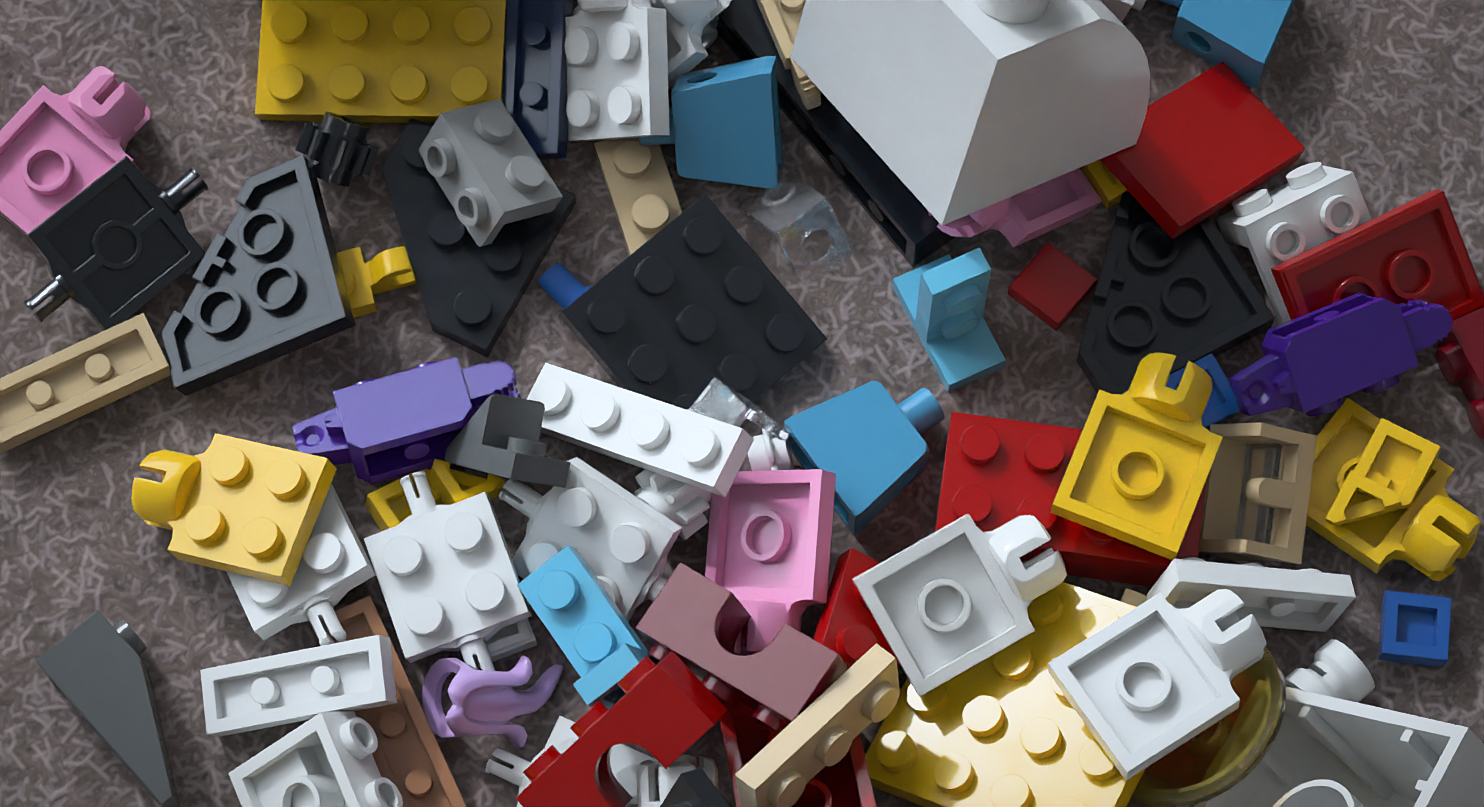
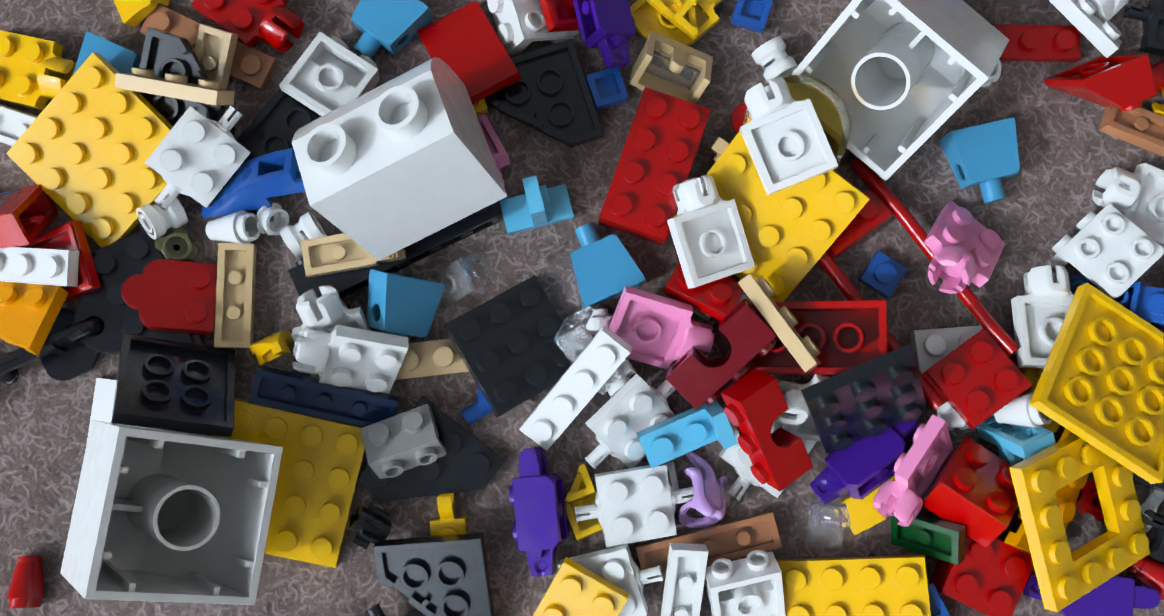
camera: 80 degrees left, 15 degrees up
(505, 442) = (575, 462): dark grey slope -> none
(1052, 286) = (527, 150): red tile -> none
(1142, 459) = (653, 120): yellow plate -> none
(1273, 595) = (726, 85): white plate -> none

